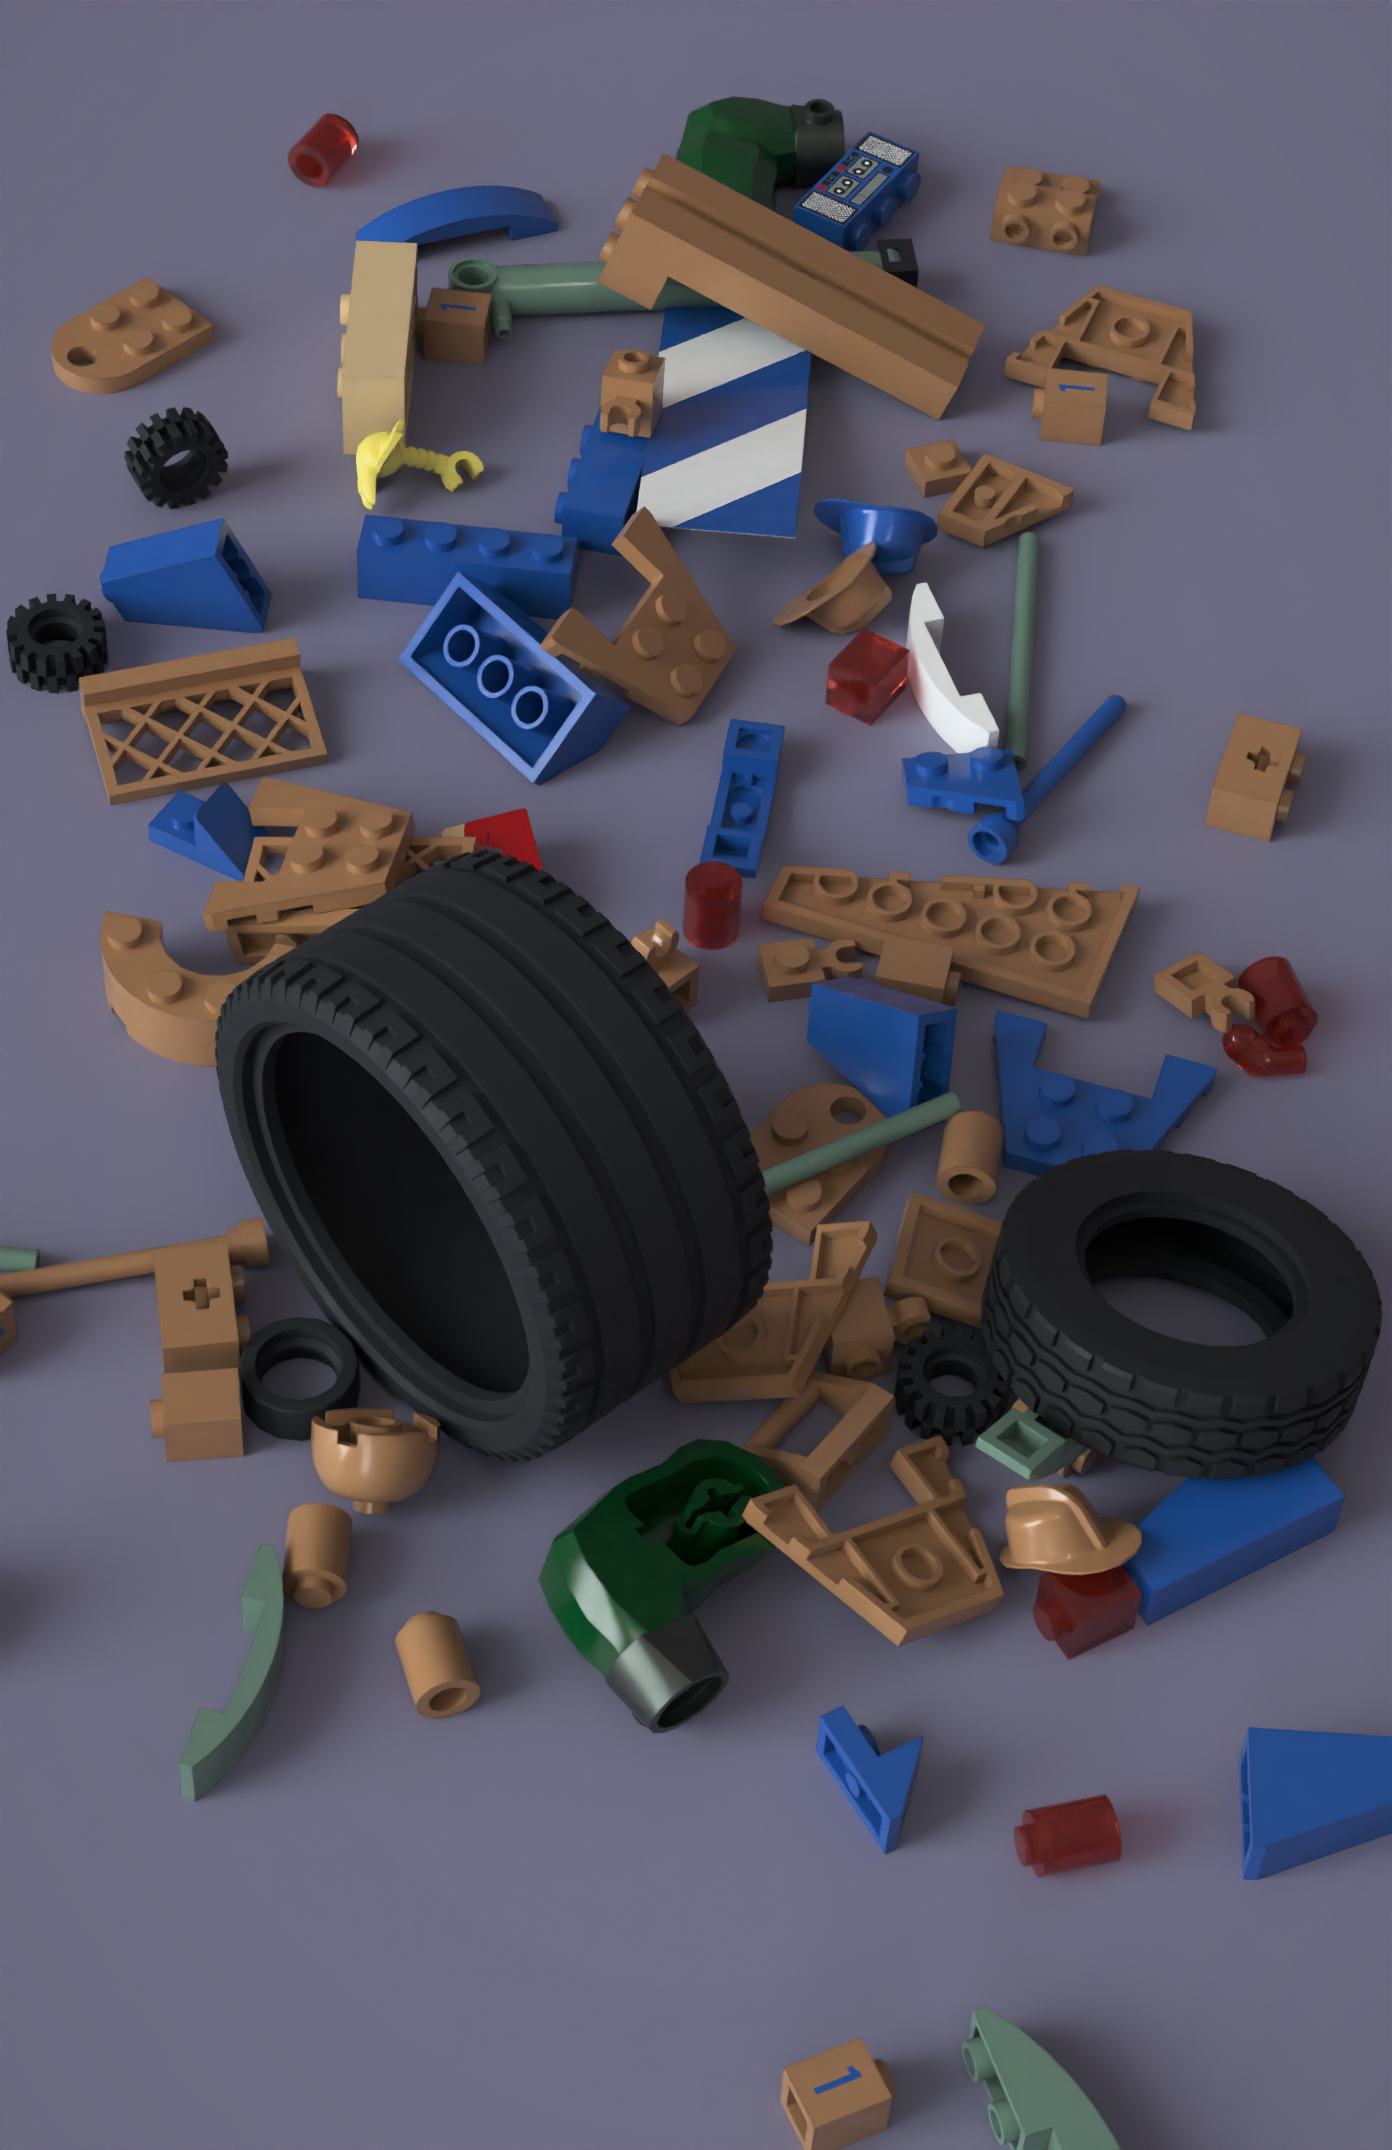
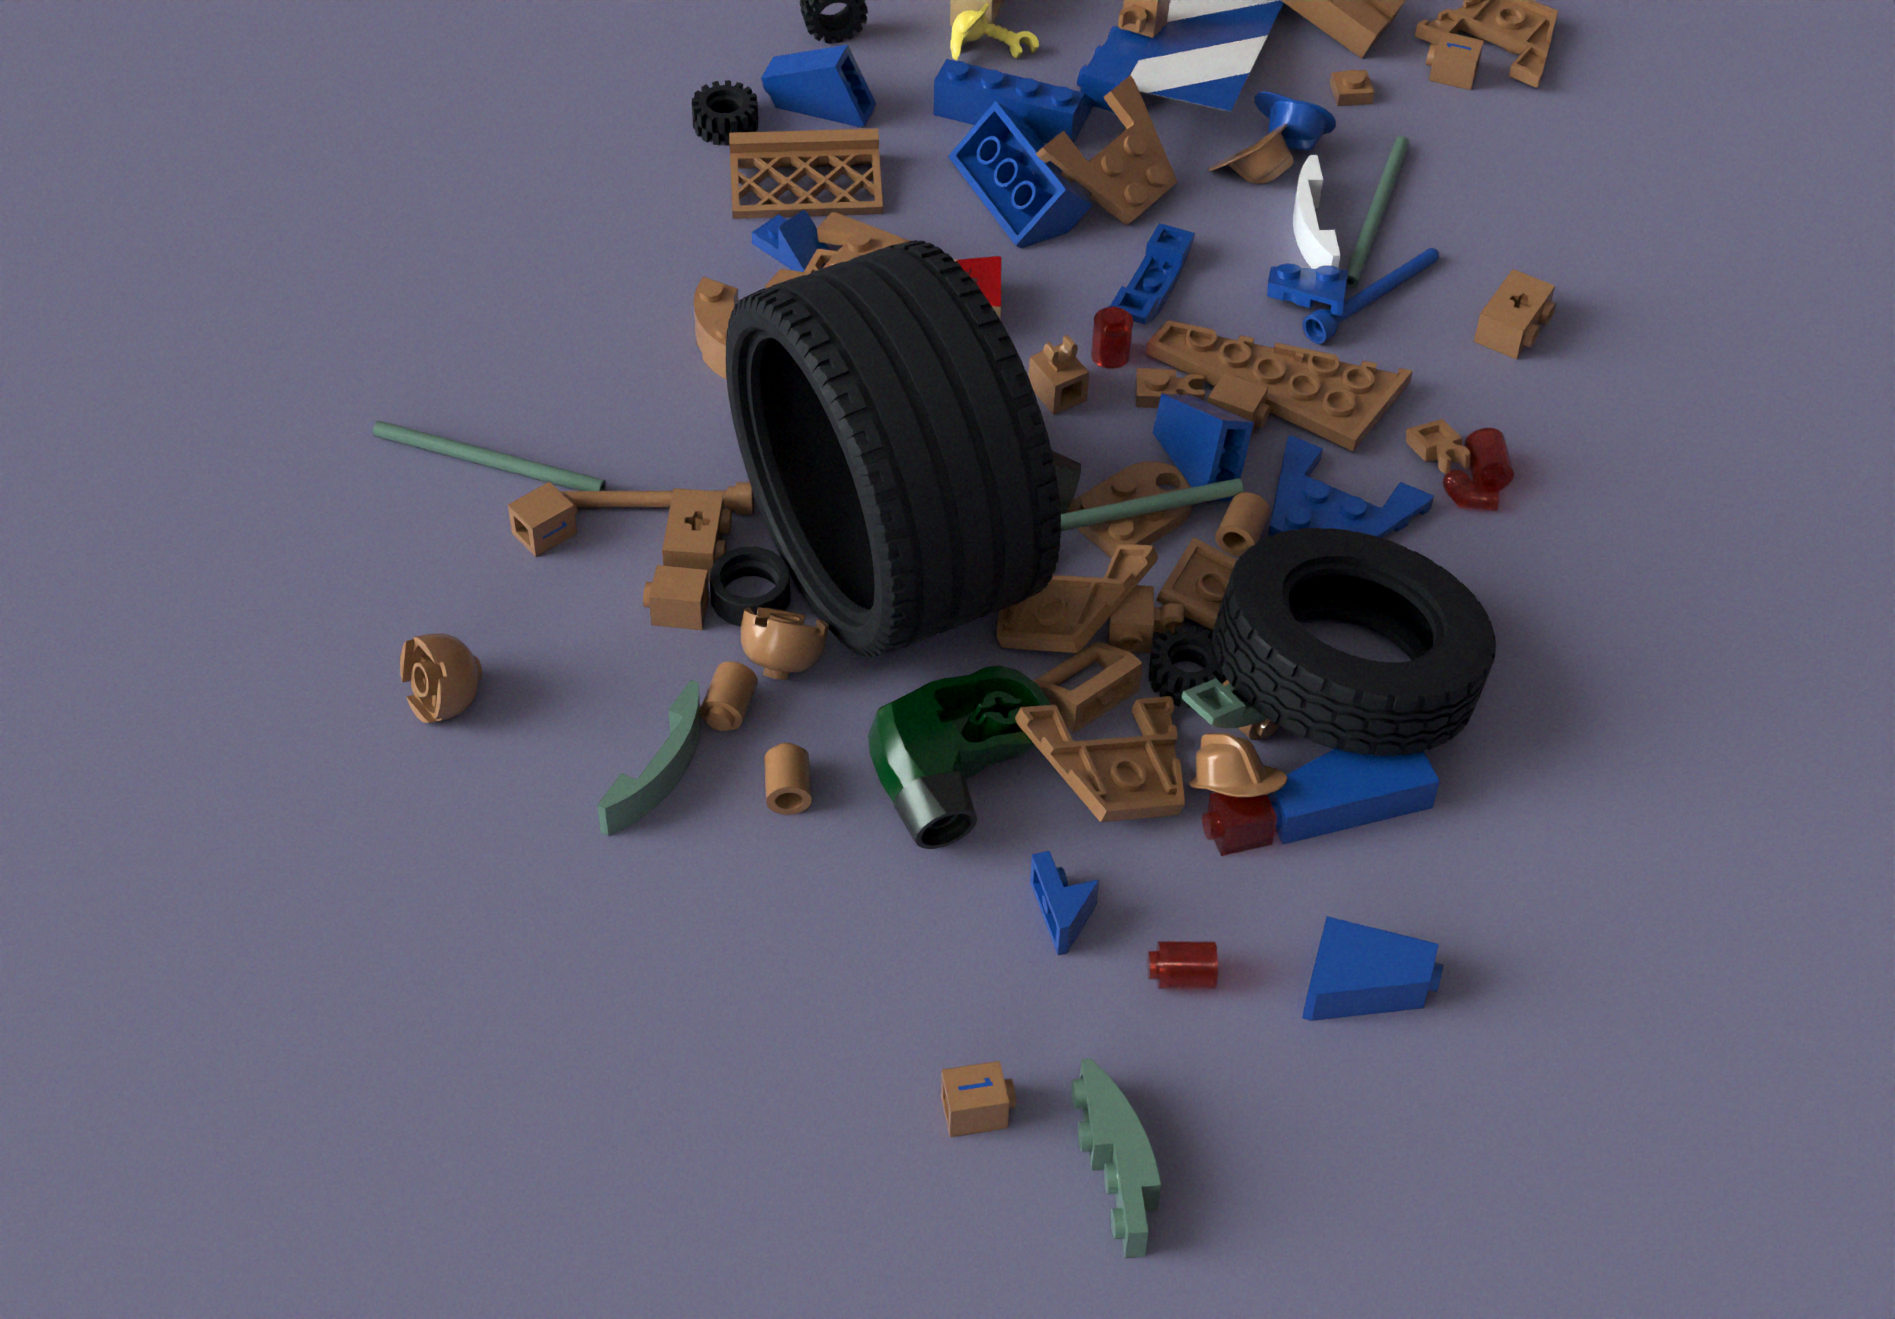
camera: 15 degrees right, 0 degrees up
(867, 676) = (1261, 210): clear red brick -> none
(1000, 501) = (1388, 113): medium nougat wing -> none

